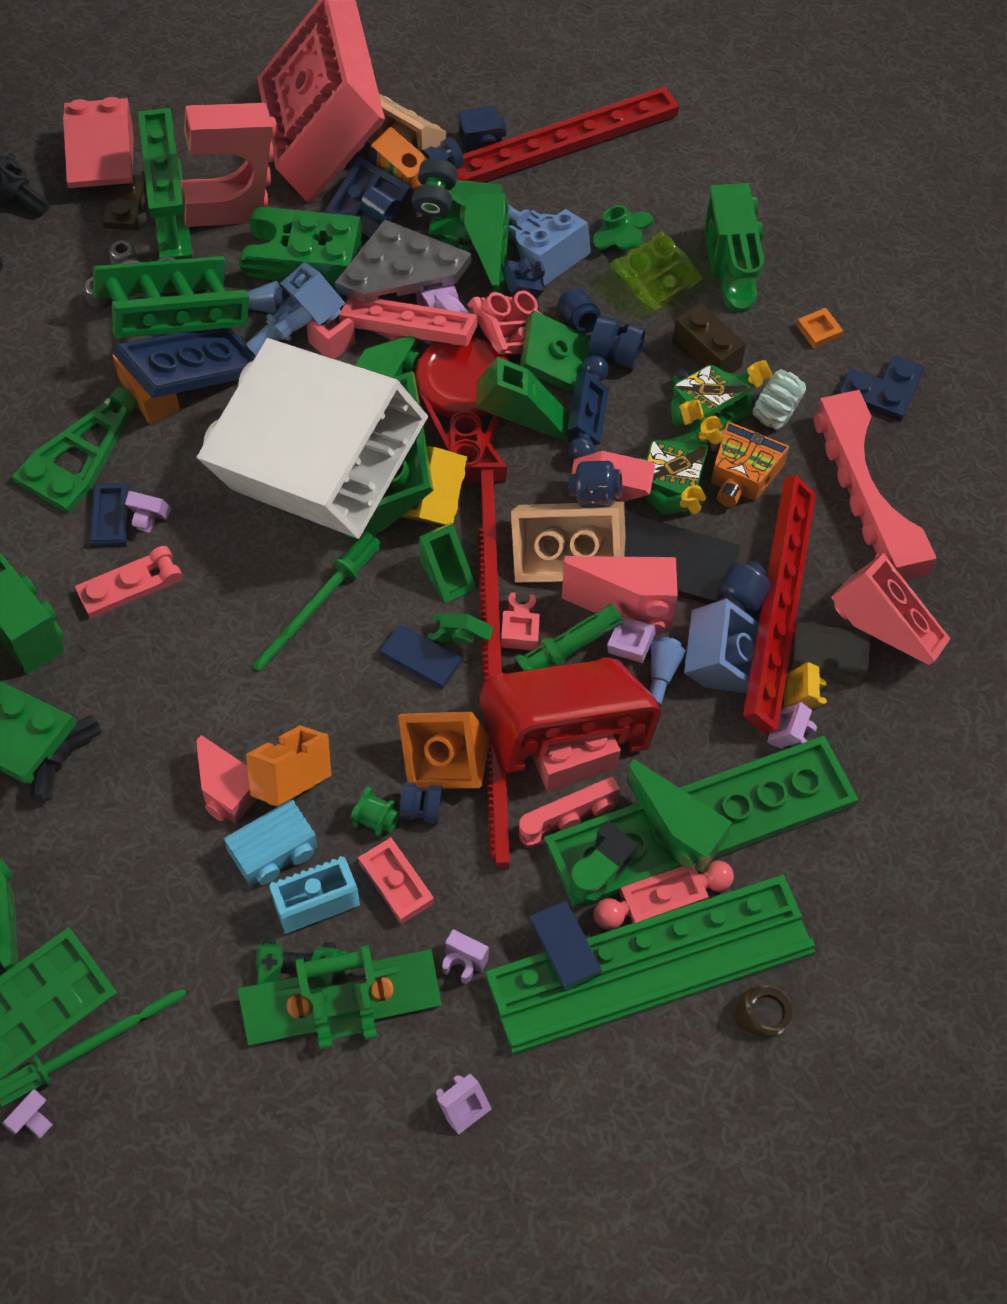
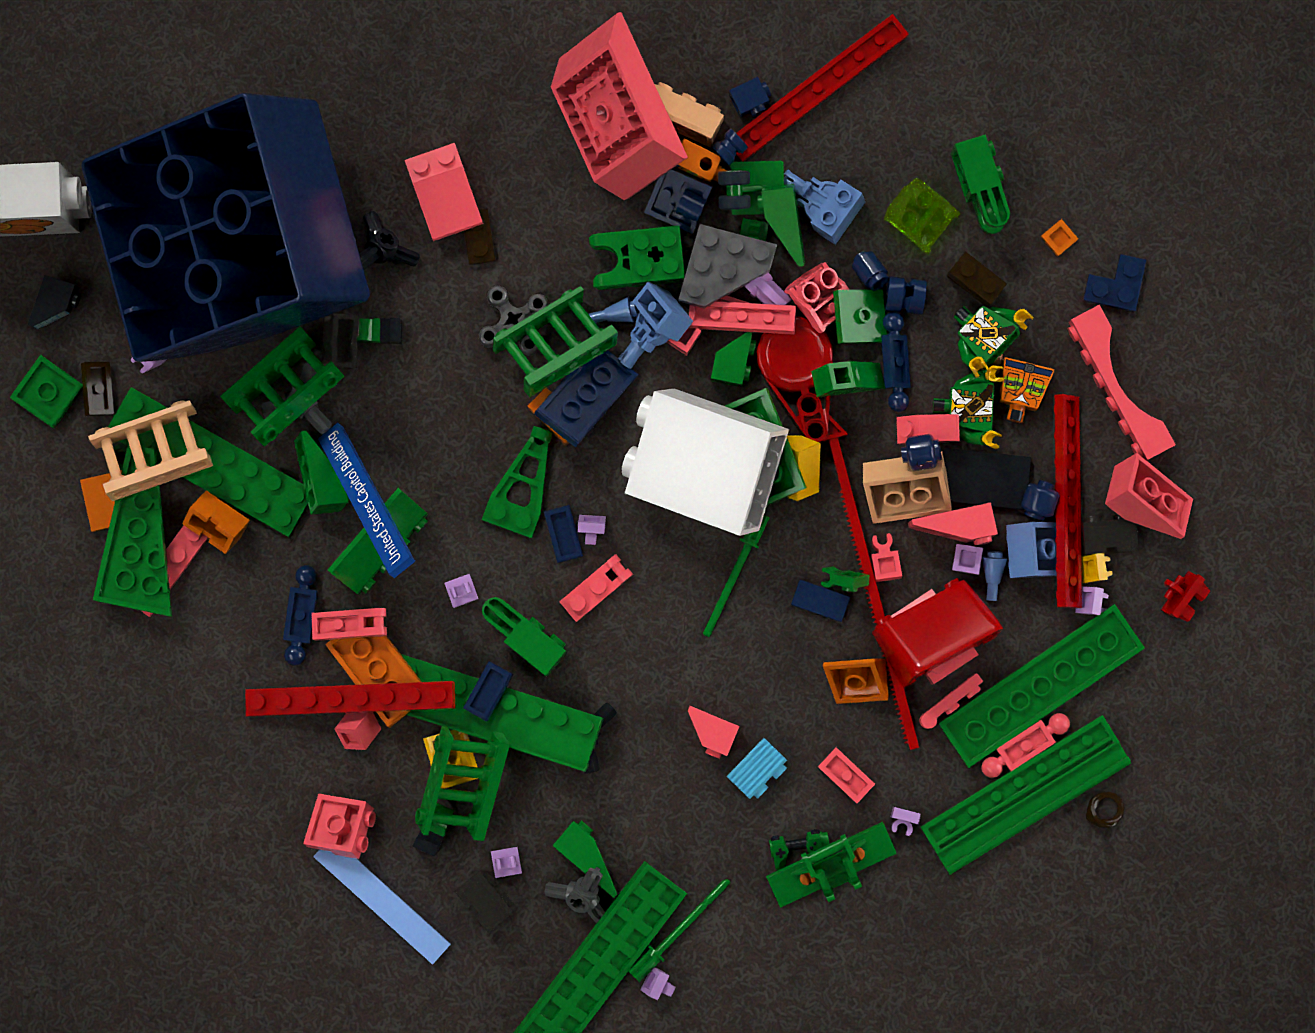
camera: 10 degrees left, 25 degrees up
(163, 183) = (517, 232): green fence -> none
(233, 130) = (567, 215): coral arch -> none
(290, 766) = (757, 716): orange brick -> none
(314, 894) = (797, 802): medium azure brick -> none
(375, 813) = (821, 731): green brick -> none
(412, 802) = (843, 716): dark blue wheel -> none
(446, 563) = (823, 526): green slope -> none
(463, 1103) = (926, 915): lavender tile -> none
(524, 277) = (821, 253): dark blue tile -> none
(554, 651) = (915, 580): green pin -> none
(565, 945) = (969, 799): dark blue tile -> none
(602, 868) = (984, 740): leg -> none
(622, 228) = (889, 180): green plate -> none
(683, 822) = (1031, 699): green slope -> none
(779, 399) = (1042, 326): light aqua gear -> none
(913, 757) = (1180, 594): none -> red hips

